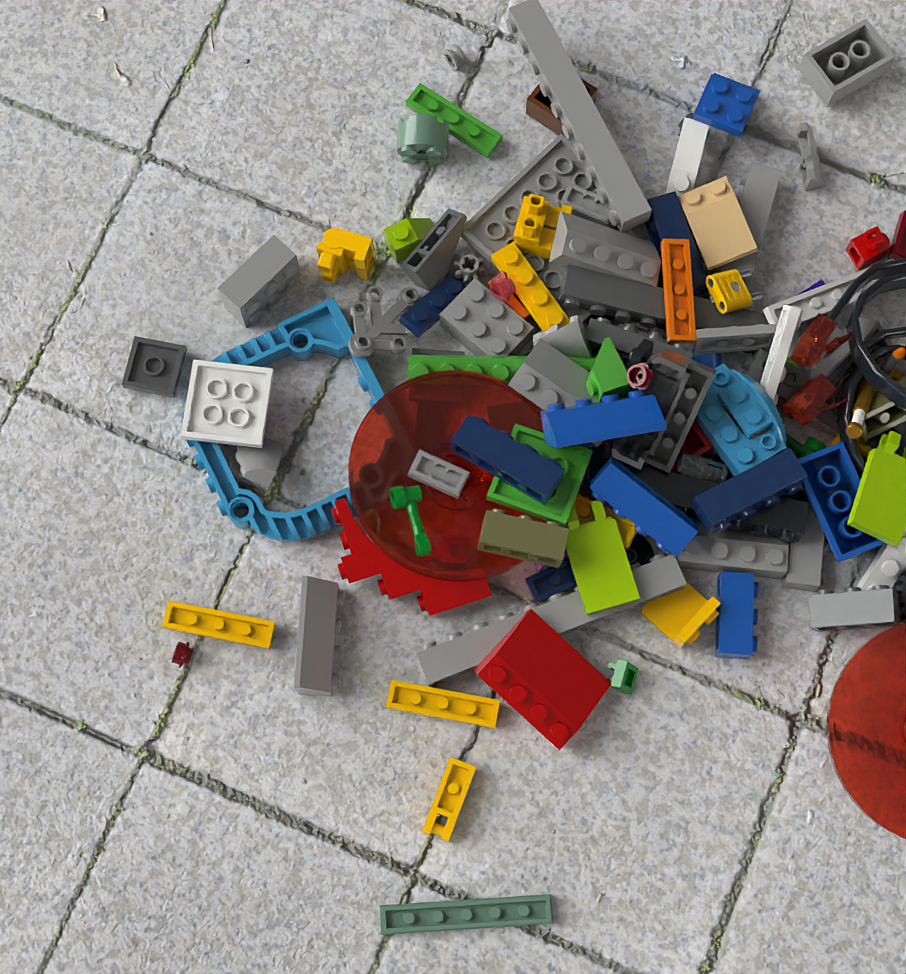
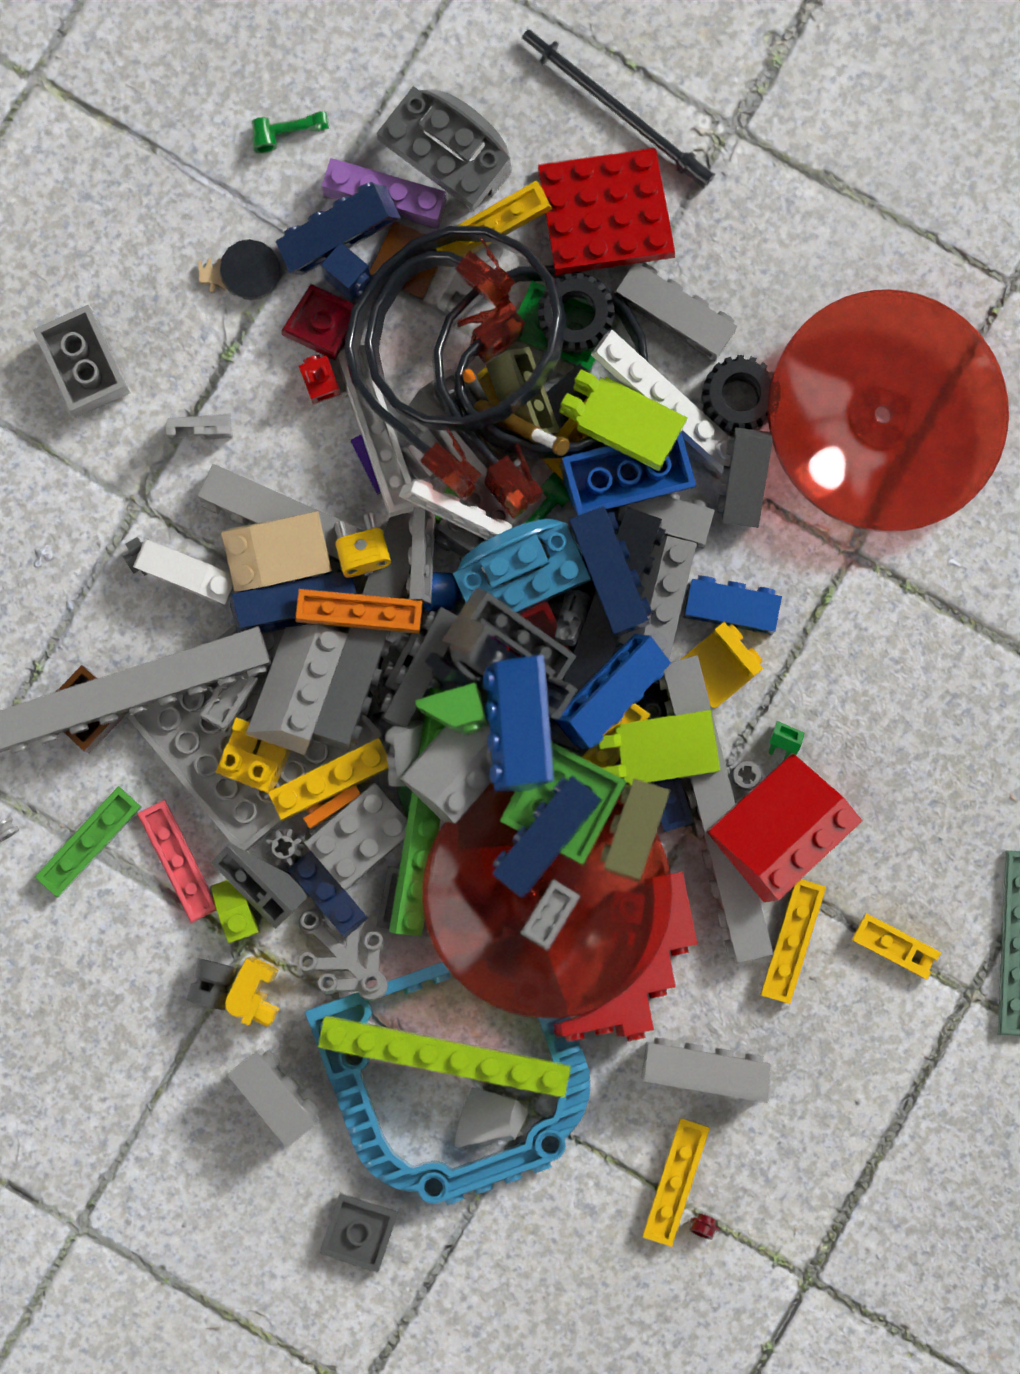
camera: 85 degrees left, 10 degrees up
(227, 403) = (425, 1148): white plate -> none
(307, 410) = (444, 1056): none -> lime brick
(354, 221) = (215, 973): none -> dark grey wheel
(408, 498) = (575, 953): green brick -> none
(423, 139) = (114, 882): sand green brick -> none
(448, 189) = (178, 861): none -> coral tile
(502, 287) = (323, 812): clear pink plate -> none
(579, 640) = (754, 769): none -> light grey bush
(633, 376) = (471, 681): dark red plate -> none
(726, 104) = (119, 513): blue bracket -> none

